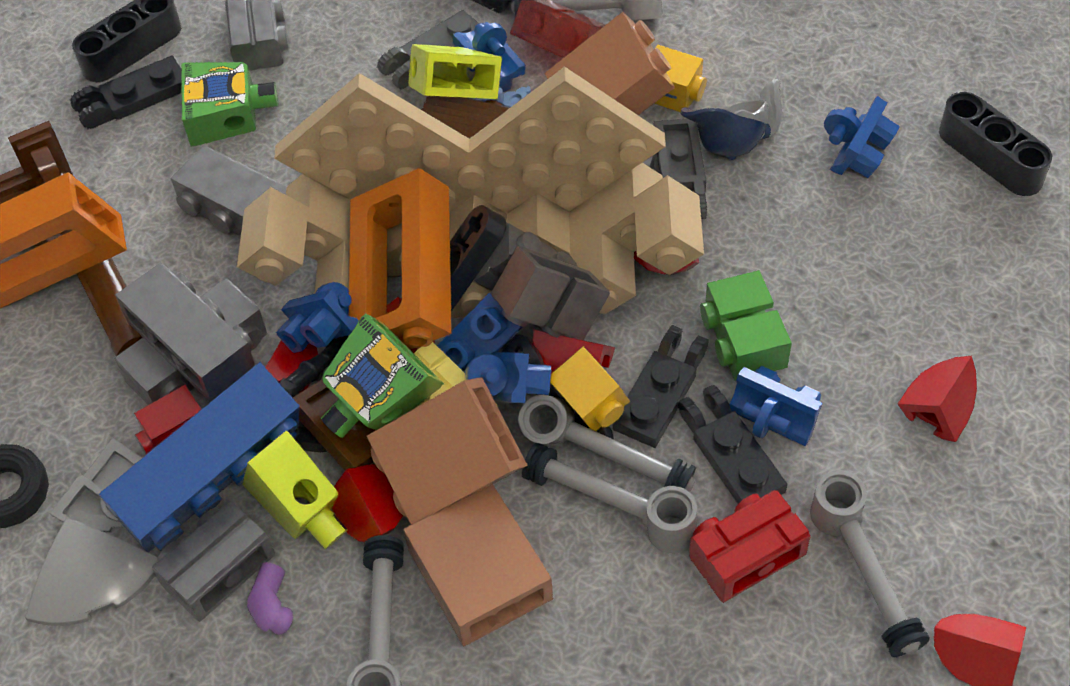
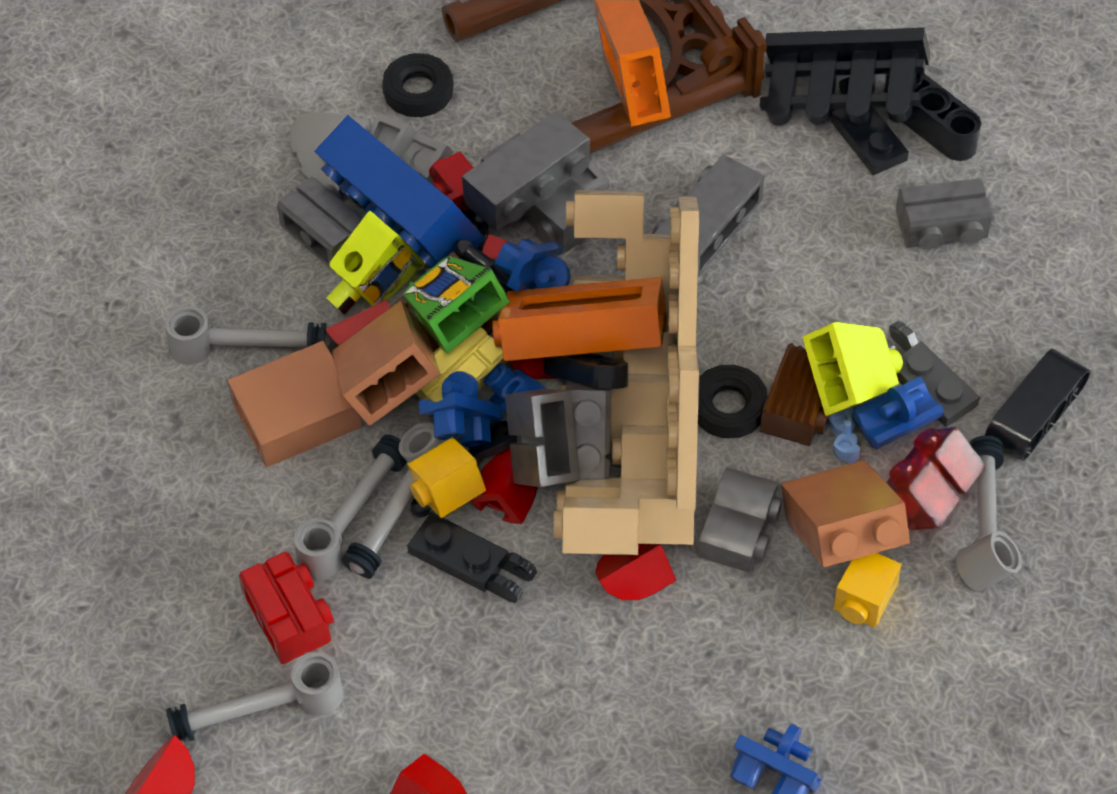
camera: 90 degrees right, 0 degrees up
(55, 66) = (844, 52): none -> black fence
(221, 100) = (839, 192): bright green torso -> none
(264, 603) = (288, 261): medium lavender arm -> none
(683, 157) = (744, 590): dark grey hinge -> none
(731, 448) = (395, 610): black hinge -> none
(740, 126) = (790, 638): dark blue hair -> none
(742, 327) = (527, 628): bright green piece -> none
(775, 406) = (423, 663): blue hips -> none

